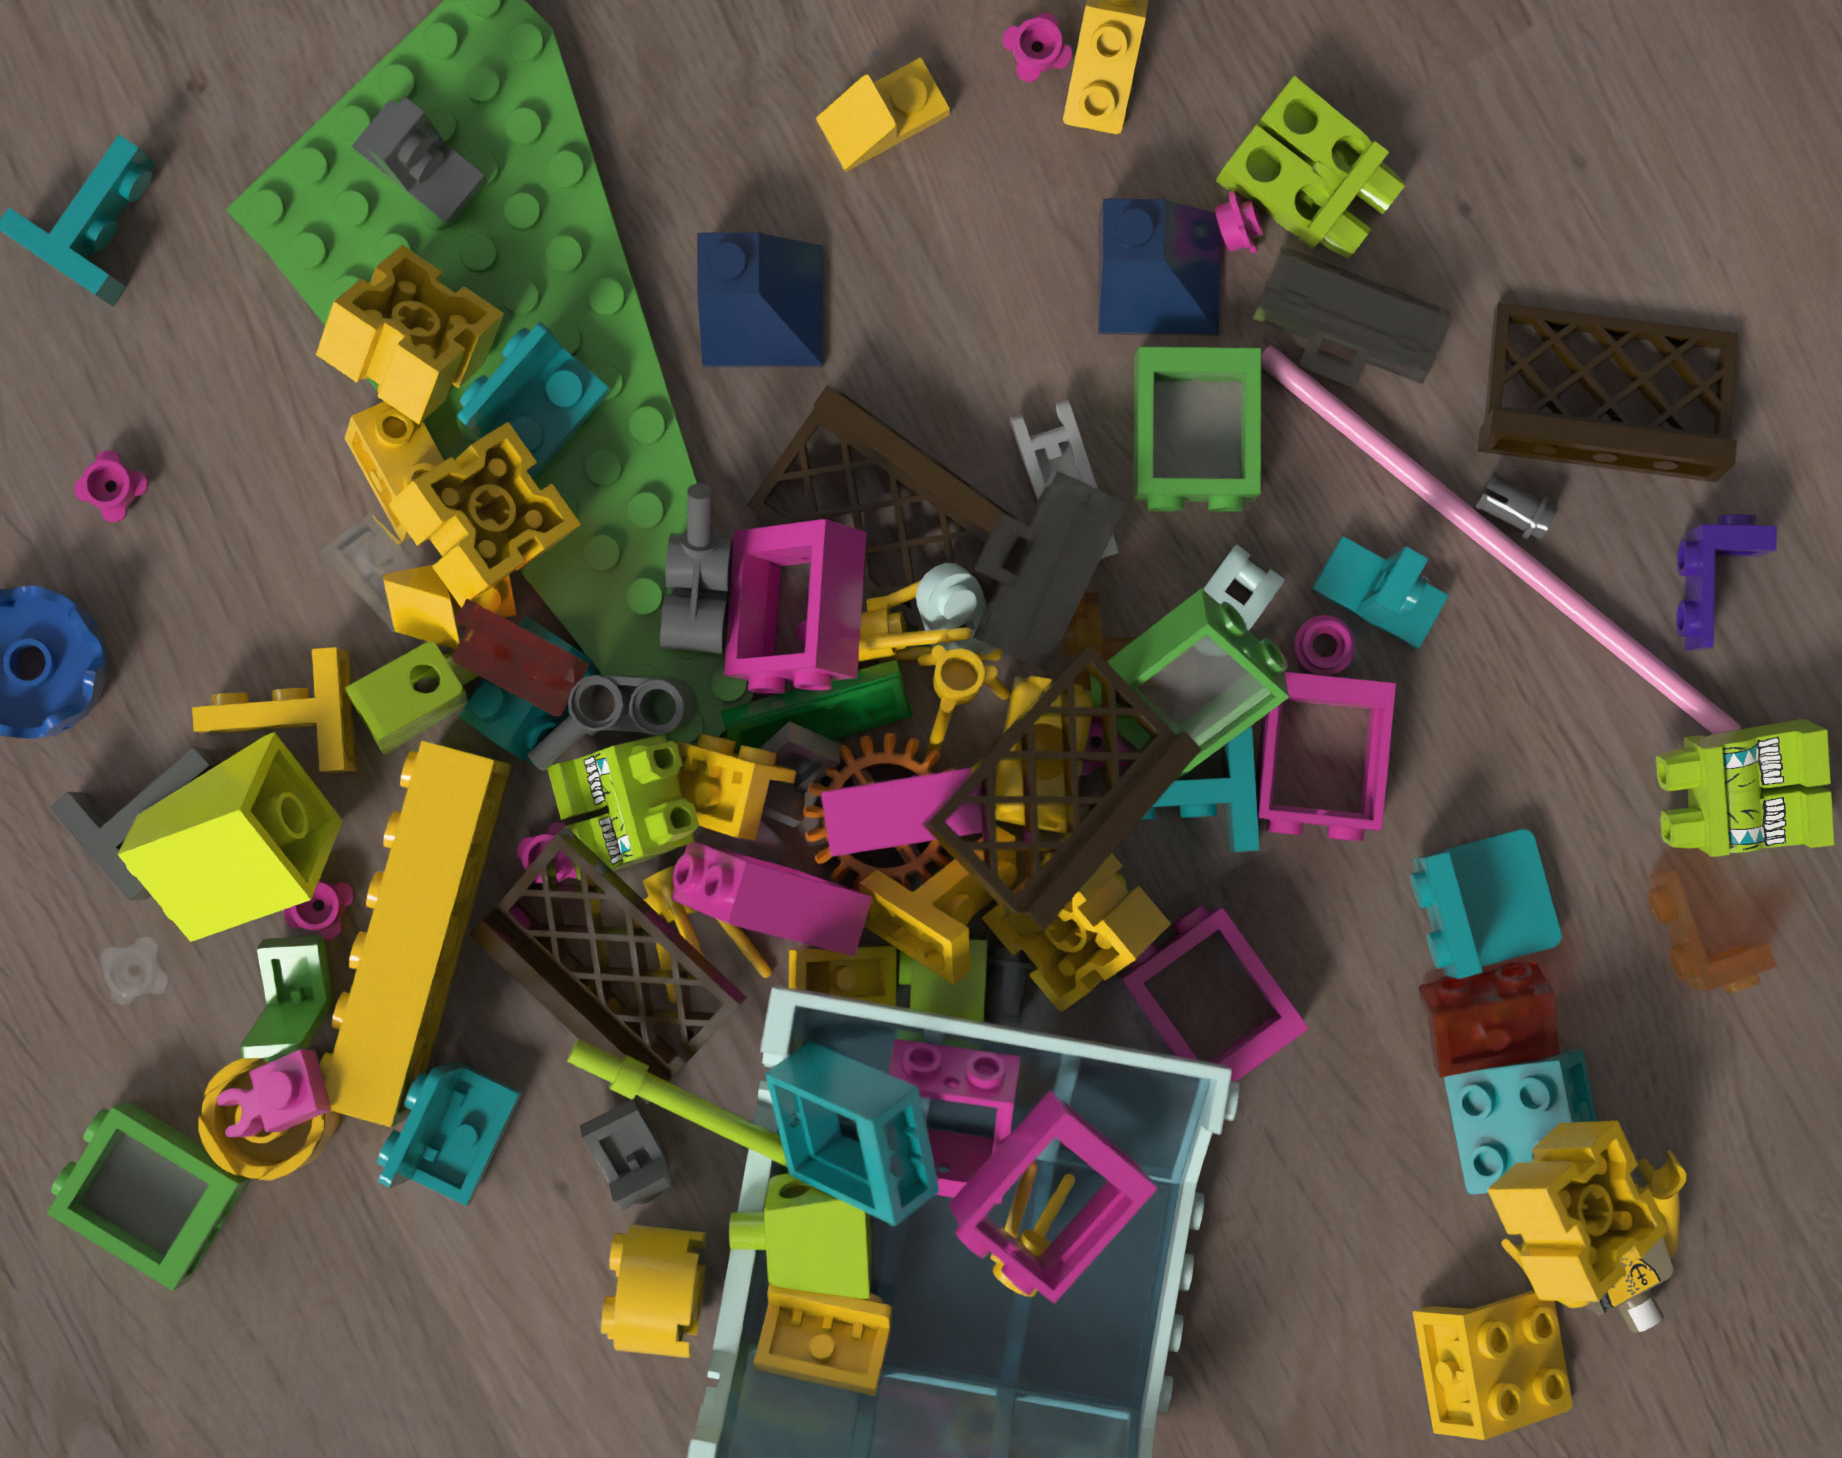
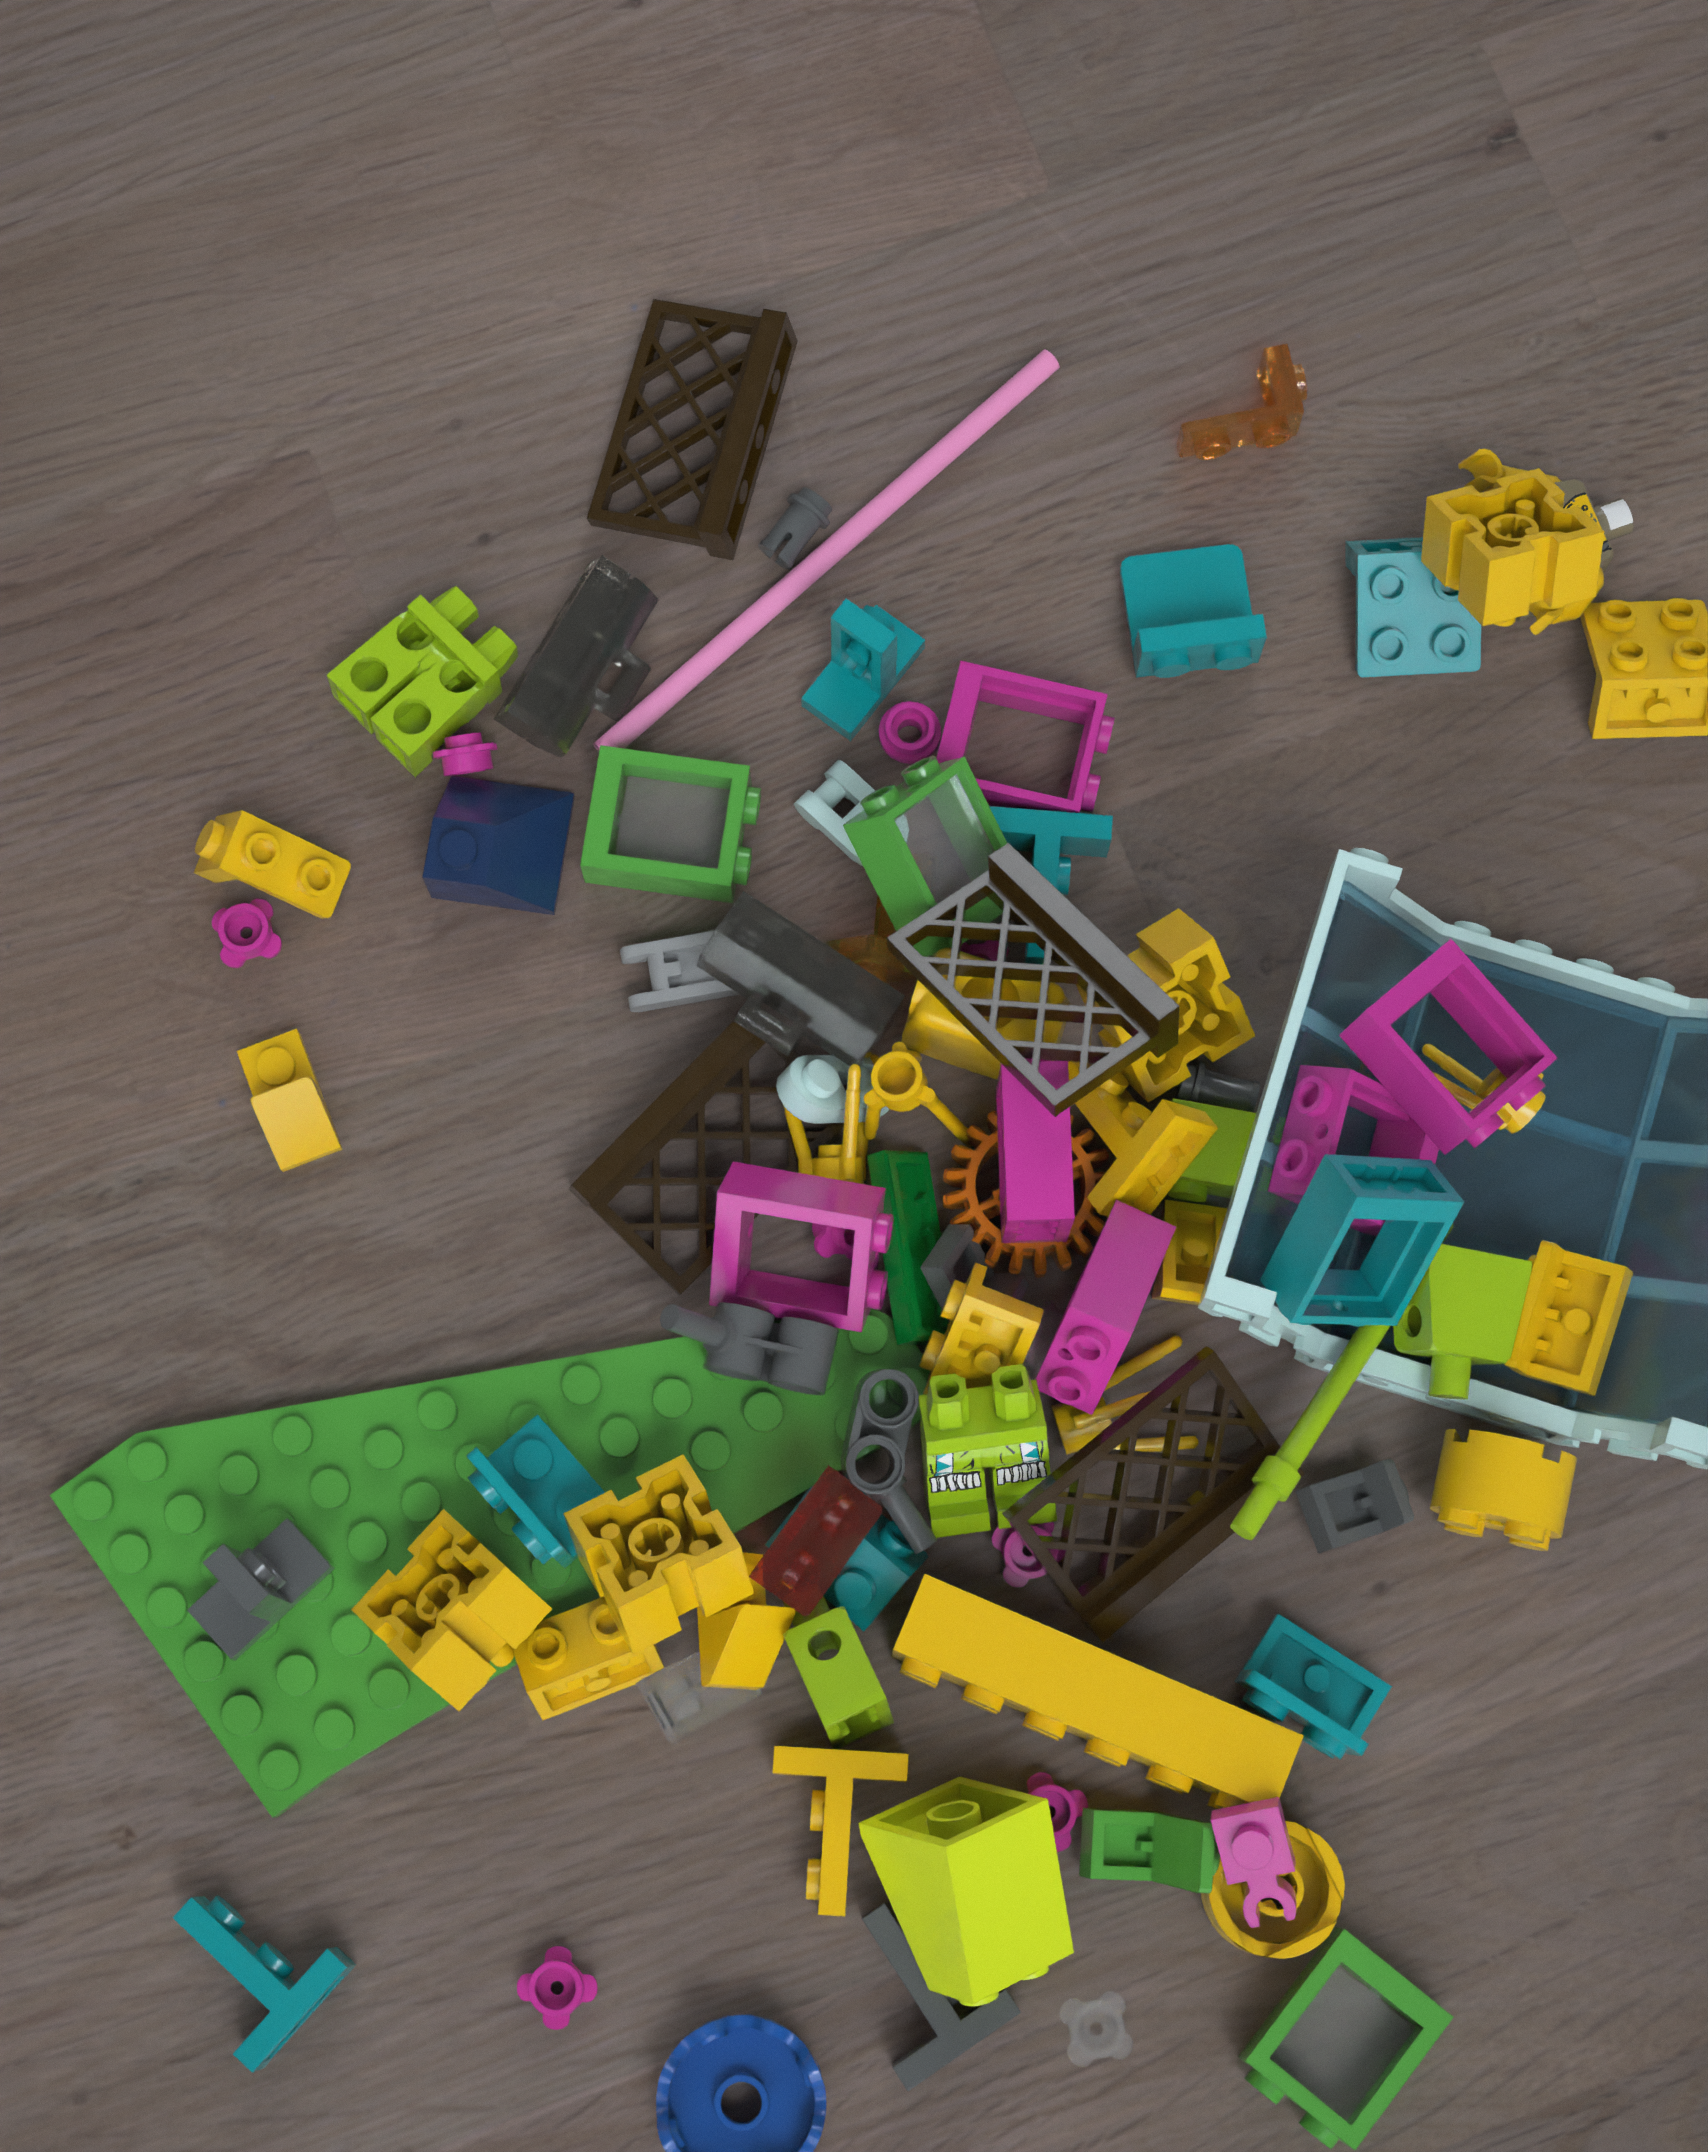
camera: 85 degrees left, 10 degrees down
(759, 300) = (467, 1253): dark blue slope -> none
(1255, 1045) = (1308, 851): dark pink window -> none
(1490, 1018) = (1307, 622): clear red bracket -> none
(1696, 561) = (879, 364): dark purple bracket -> none
(1750, 789) = (1108, 345): lime hips -> none

